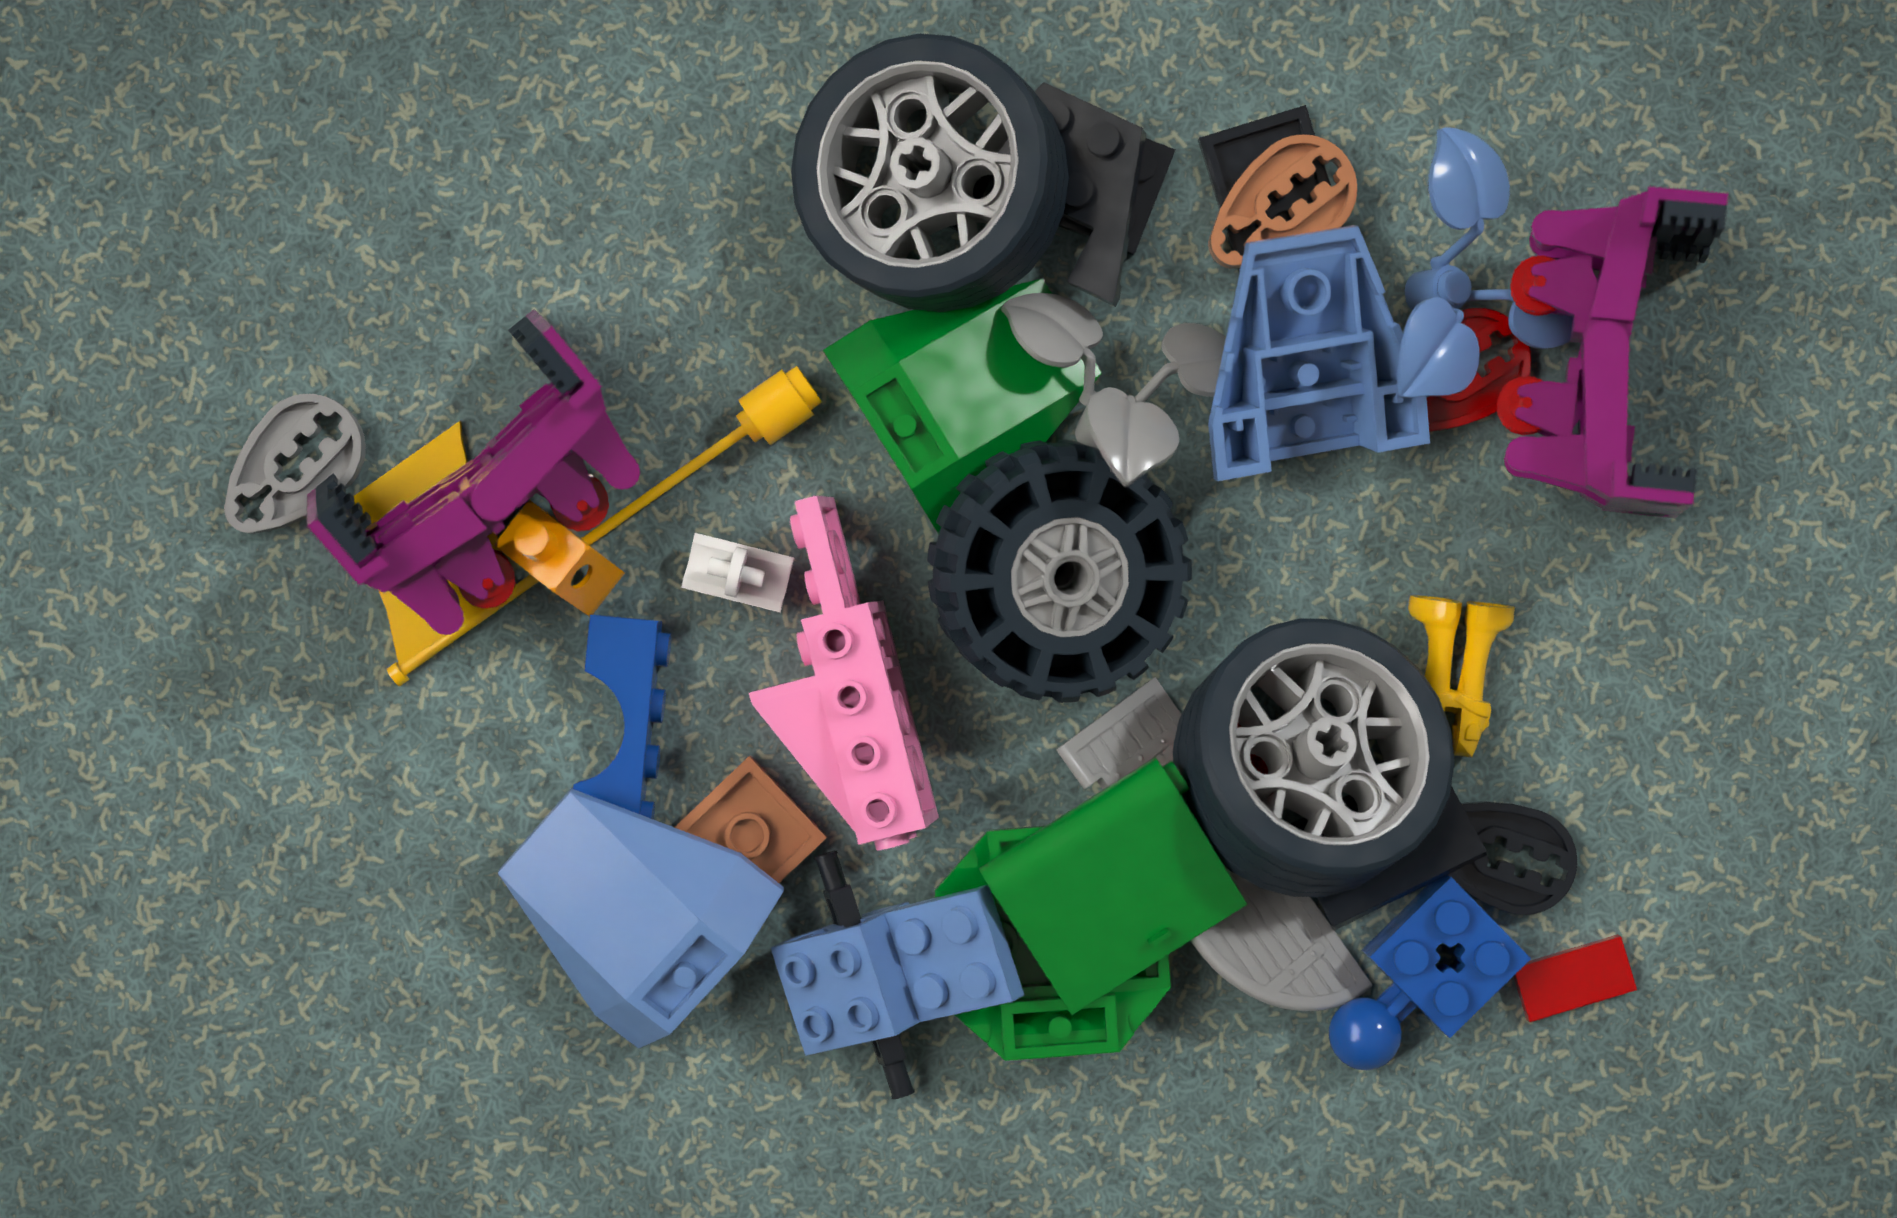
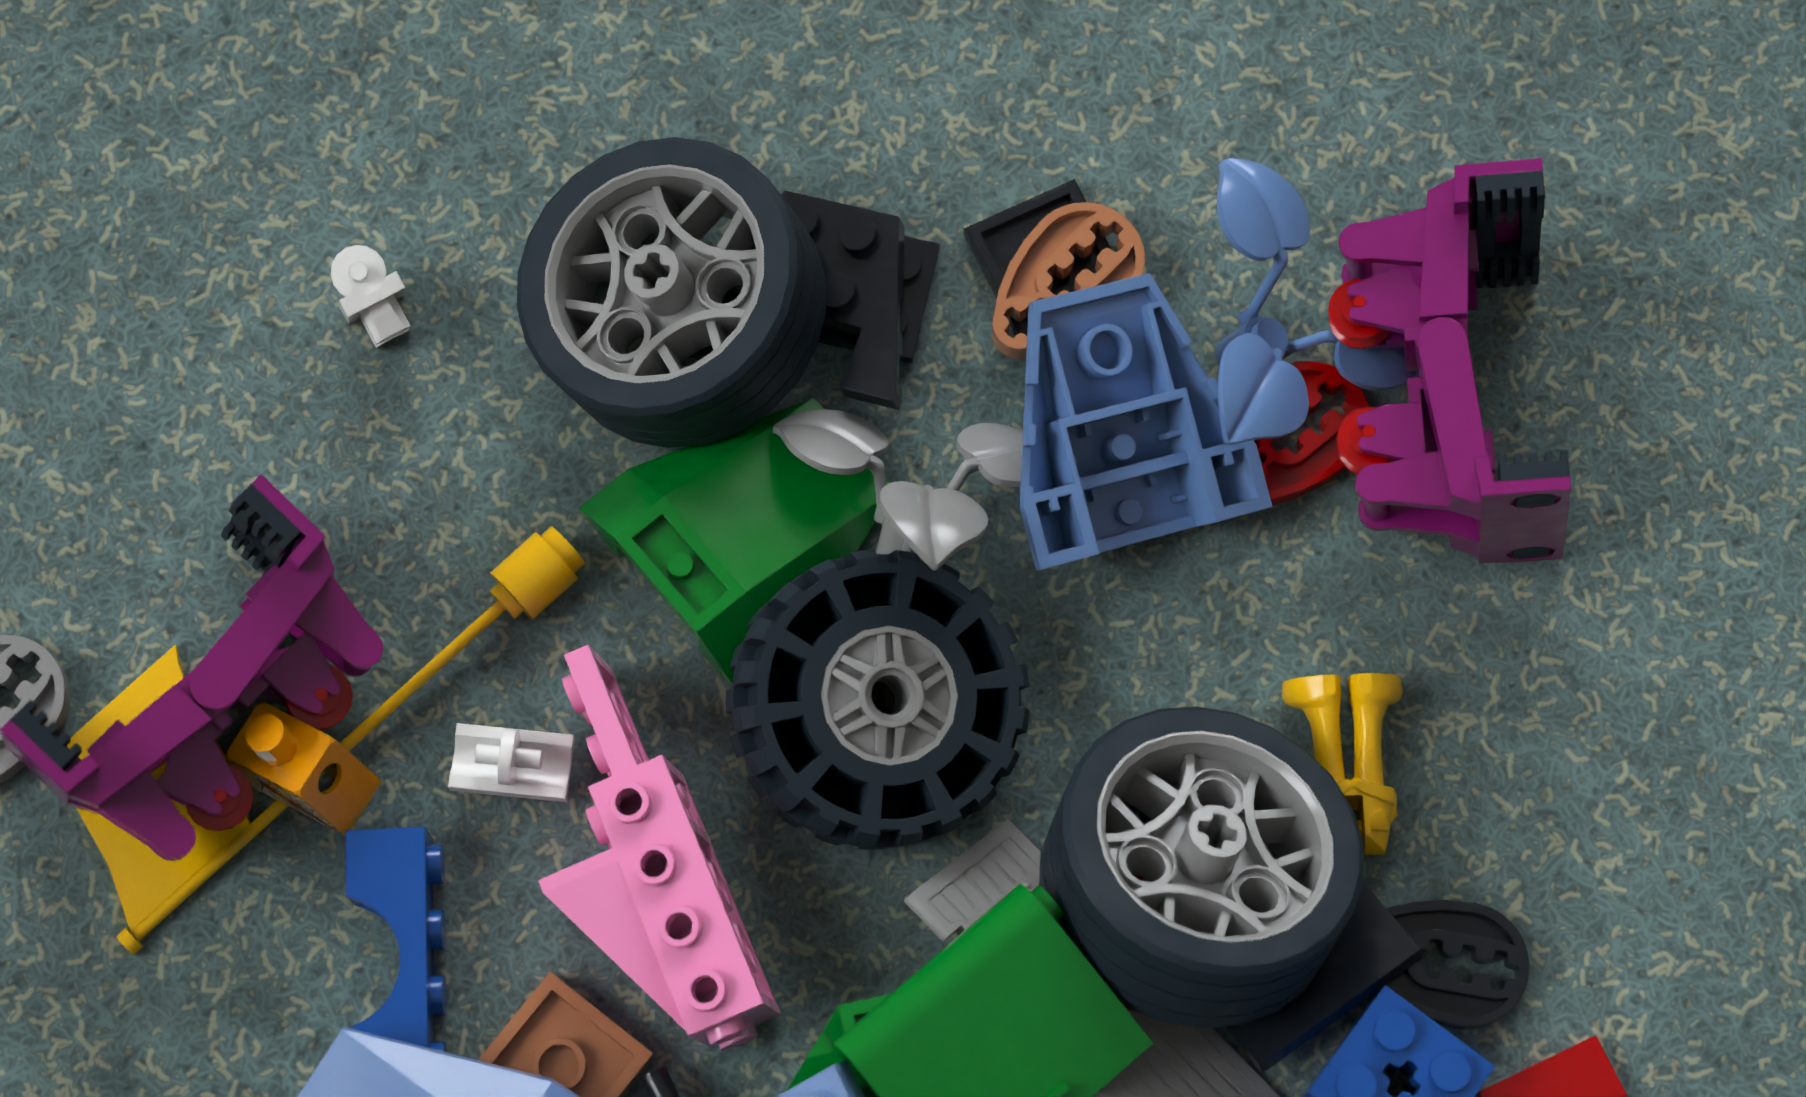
camera: 10 degrees left, 15 degrees down
(661, 131) = (369, 293): none -> white hips

